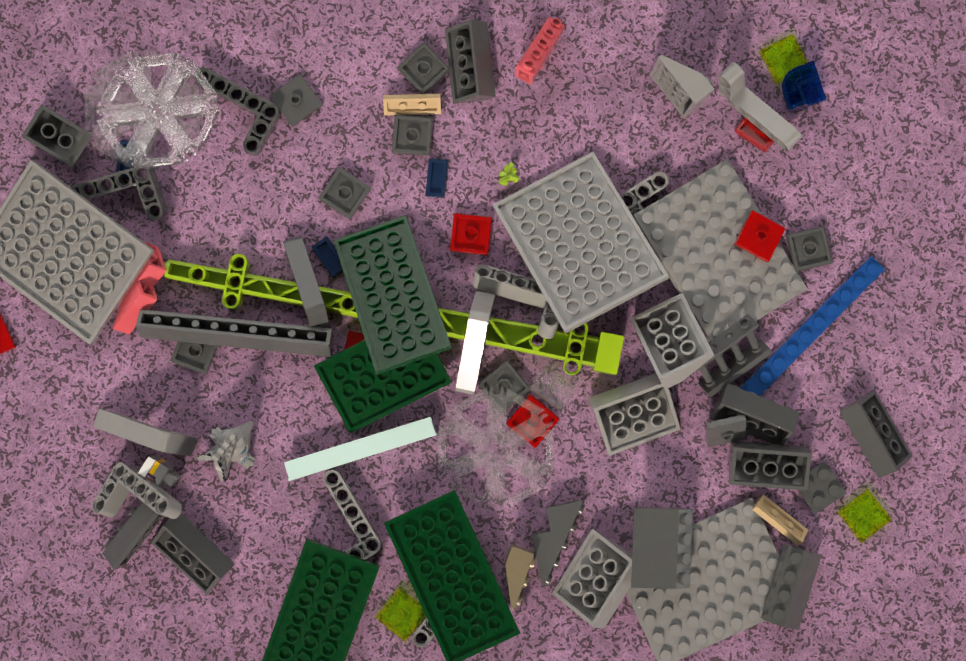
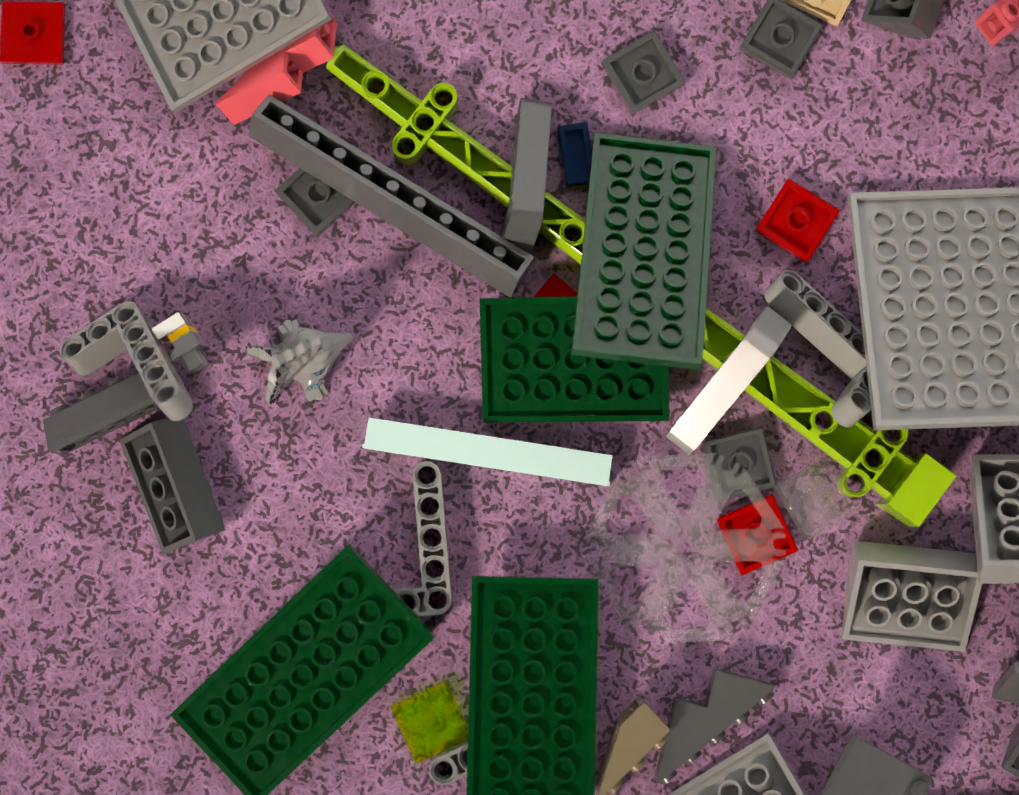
camera: 20 degrees right, 0 degrees up
(144, 433) = (188, 277): light grey beam -> none
(436, 178) = (786, 115): dark blue tile -> none
(508, 174) = (894, 160): lime plant -> none

